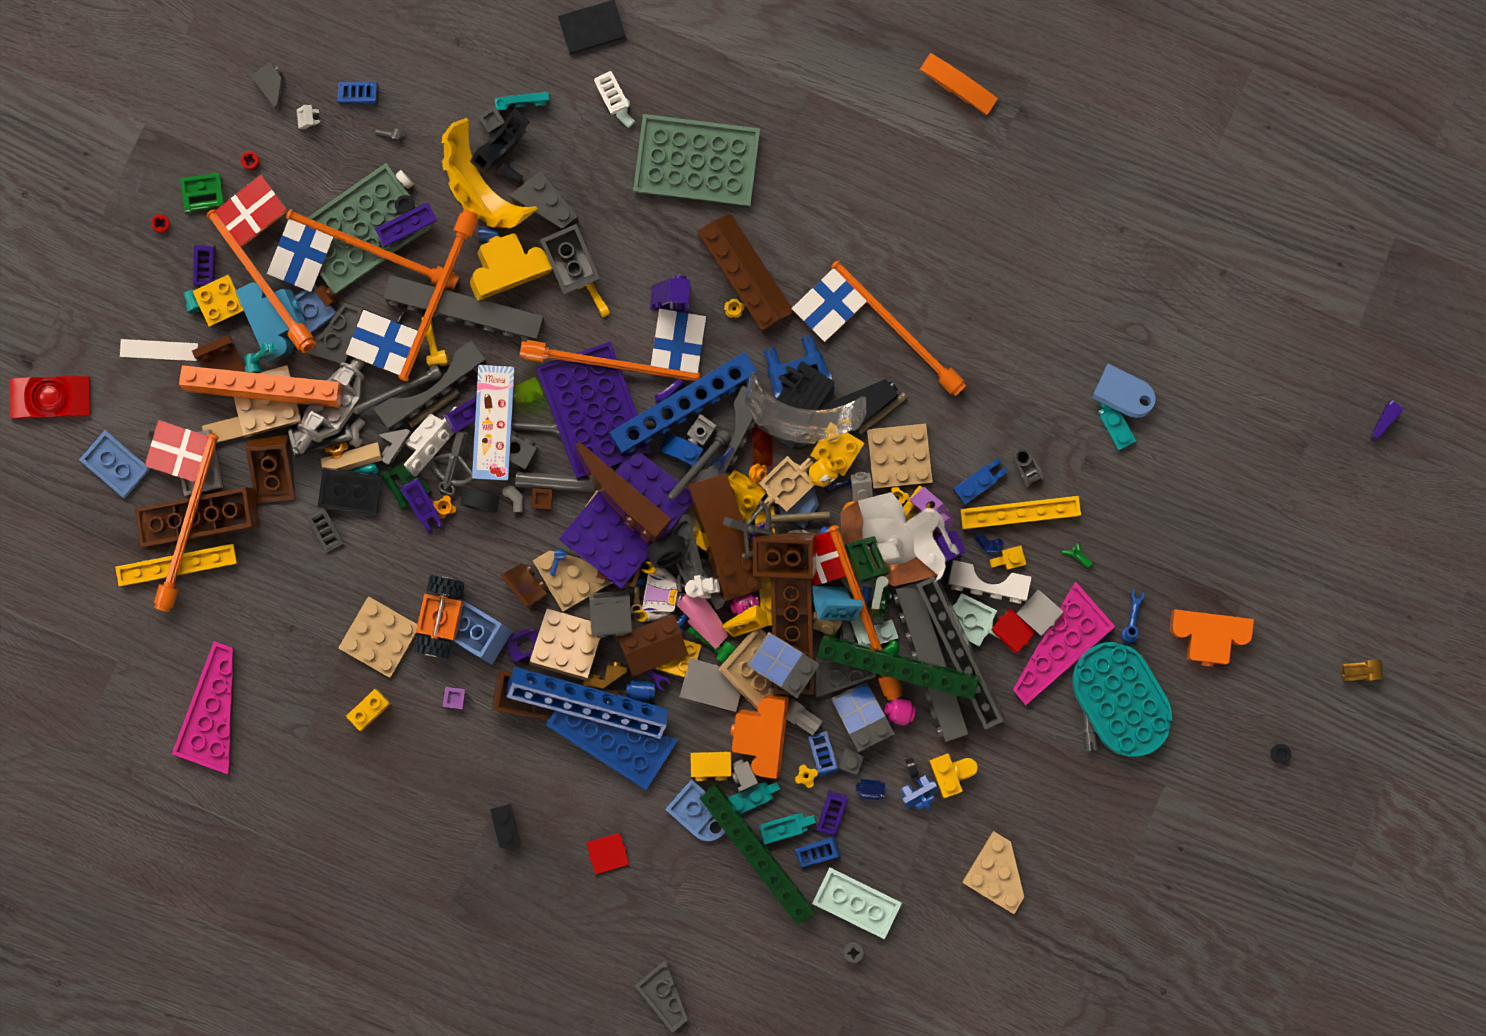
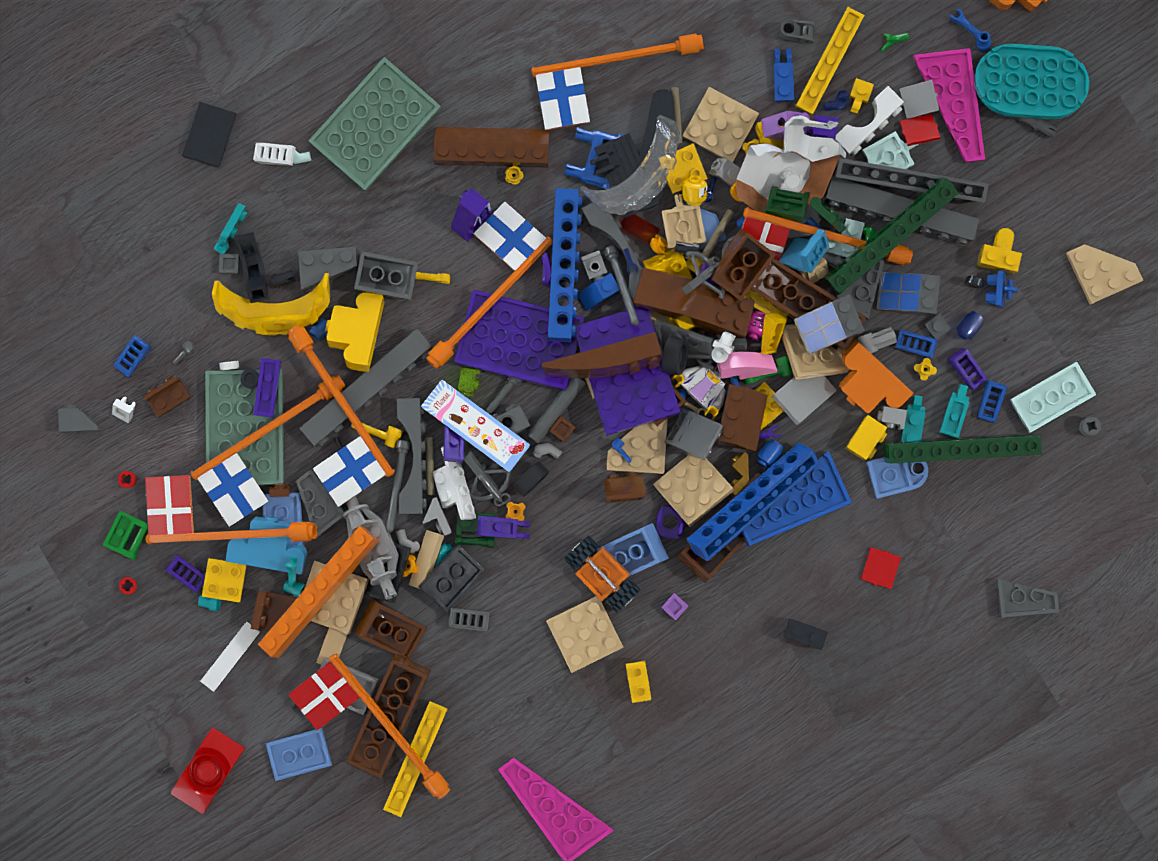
camera: 50 degrees left, 0 degrees up
(343, 146) = (167, 396): none -> reddish brown bracket
(767, 497) = (683, 248): none -> black pin
(900, 711) = (924, 260): dark pink head -> none

